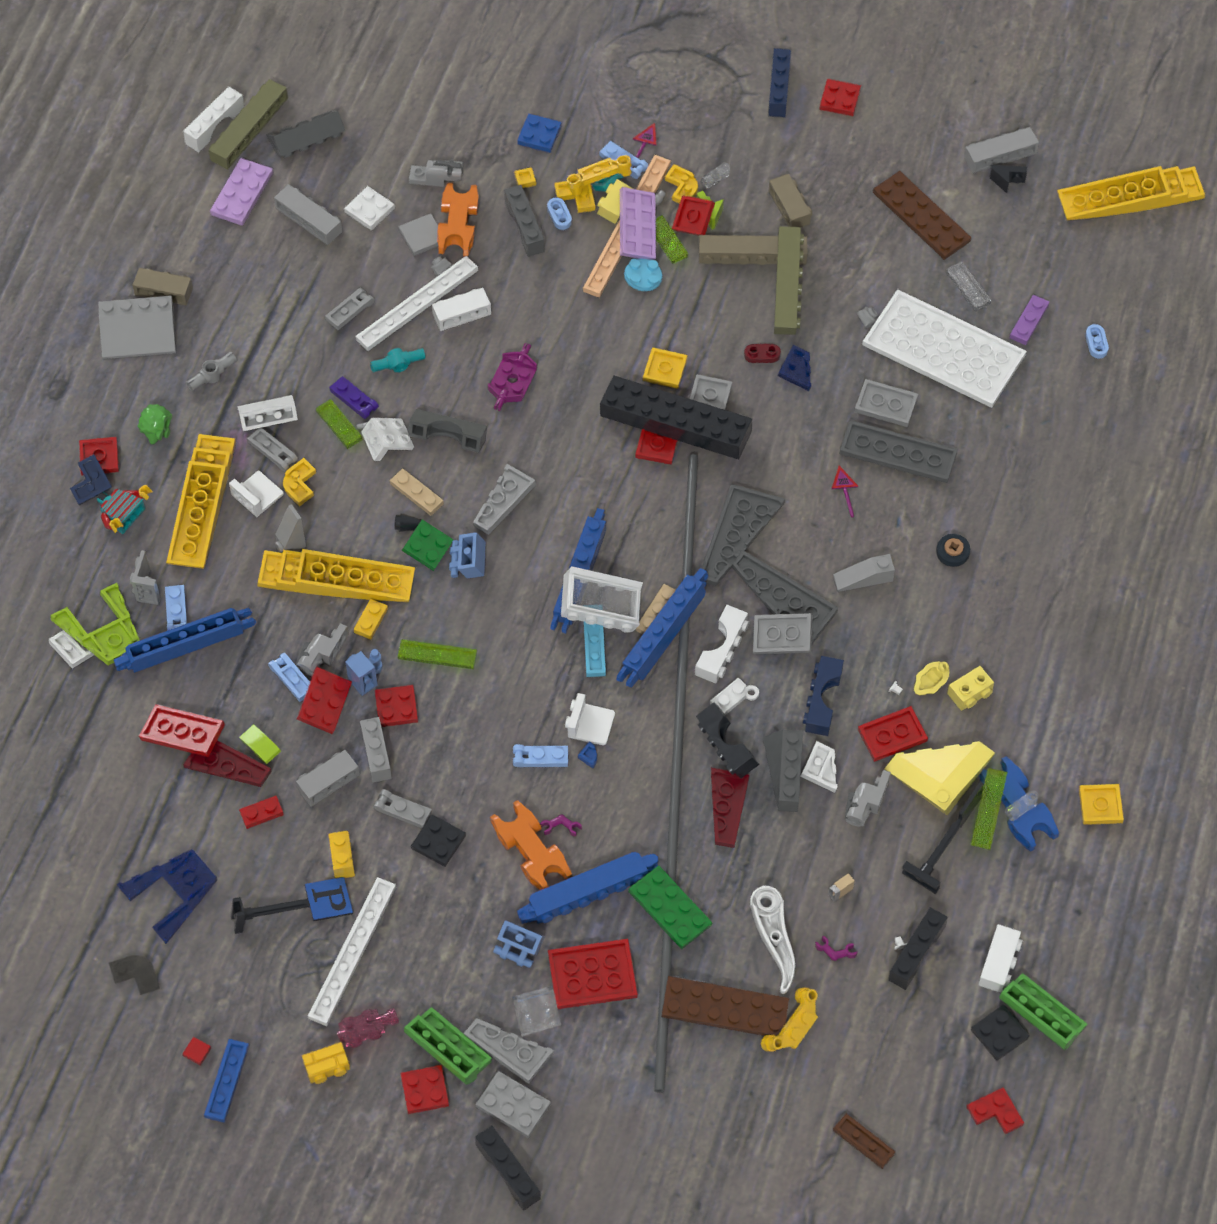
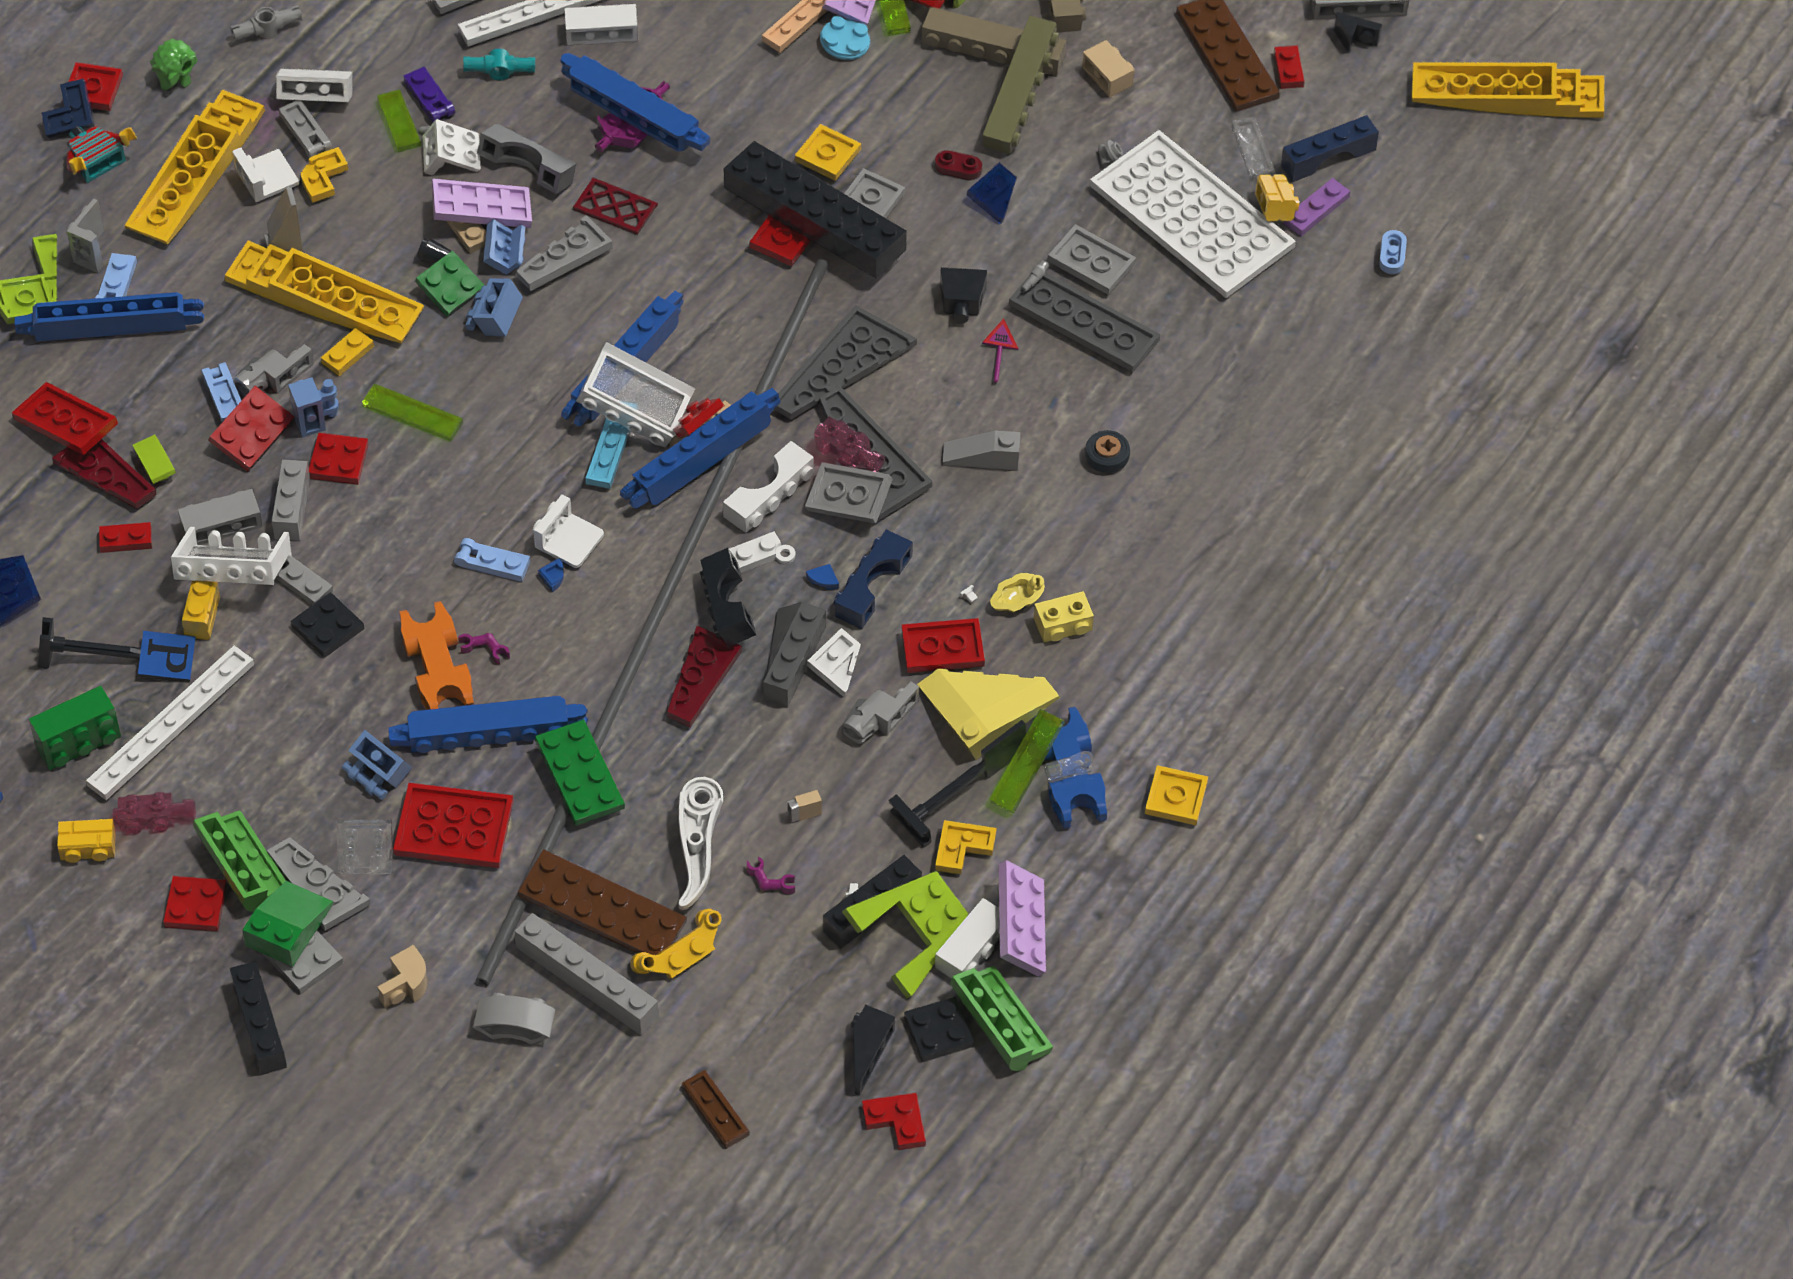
camera: 15 degrees right, 5 degrees down
(286, 977) = (75, 727): none -> green brick
(353, 813) = (229, 564): none -> white window
(428, 475) = (481, 203): none -> lavender plate
(457, 505) = (504, 247): none -> medium blue bracket
(502, 1087) = (286, 922): none -> green slope
(511, 367) = (633, 104): none -> blue hinge
(516, 439) = (618, 221): none -> dark red window
(607, 1104) = (409, 980): none -> tan brick
(651, 603) = (696, 415): none -> red plate
(695, 1113) = (514, 1018): none -> light grey brick
(734, 1063) = (586, 974): none -> light grey brick
(762, 597) = (847, 445): none -> clear pink brick
(786, 703) = (823, 576): none -> blue tile
(803, 453) = (962, 291): none -> black torso
(842, 250) = (1108, 68): none -> tan brick
(853, 426) = (1035, 275): none -> light grey piece
(955, 1056) = (871, 1035): none -> black slope
(961, 881) = (961, 838): none -> yellow plate
(963, 944) = (931, 912): none -> lime wing
(969, 215) = (1289, 67): none -> red plate
(1001, 321) = (1276, 197): none -> yellow brick
(1010, 282) = (1306, 155): none -> dark blue arch
(1030, 931) = (1022, 918): none -> lavender plate

